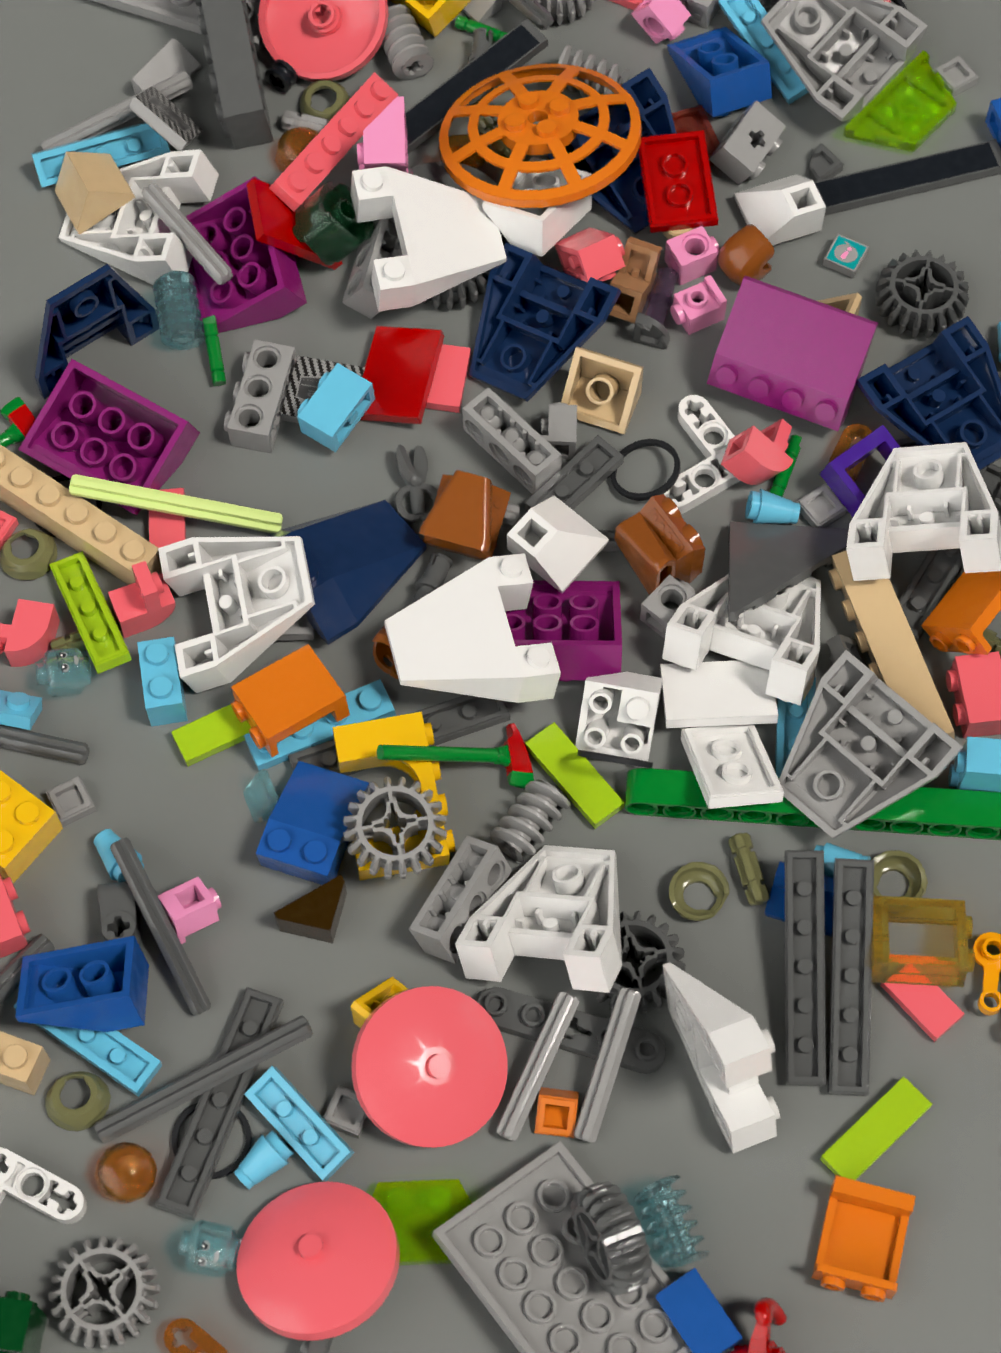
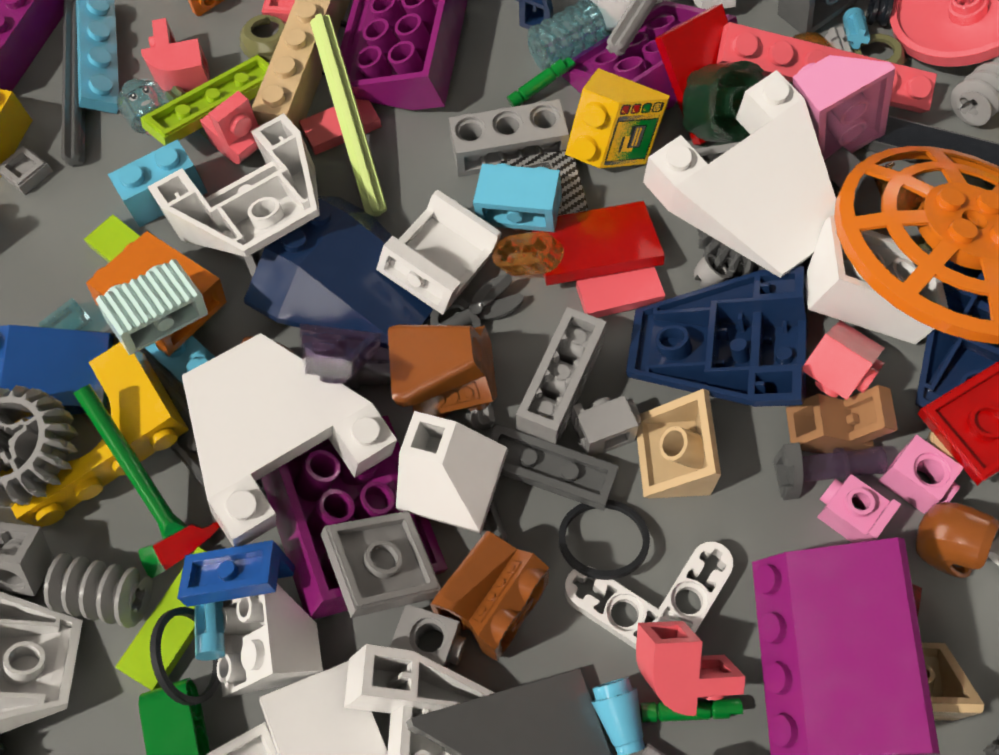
camera: 70 degrees right, 0 degrees up
(291, 101) = (856, 27): none -> medium azure piece
(302, 309) = (615, 121): none -> yellow slope
(328, 685) = (152, 306): none -> light aqua brick
(356, 483) = (439, 252): none -> white panel
(395, 428) = (528, 245): none -> clear orange beam
(422, 574) = (336, 352): none -> clear purple wing
(468, 310) = (705, 272): none -> light grey hinge
(574, 699) = (233, 573): none -> blue panel
(597, 742) = (209, 631): none -> medium azure piece
(605, 606) = (380, 563): none -> light grey tile

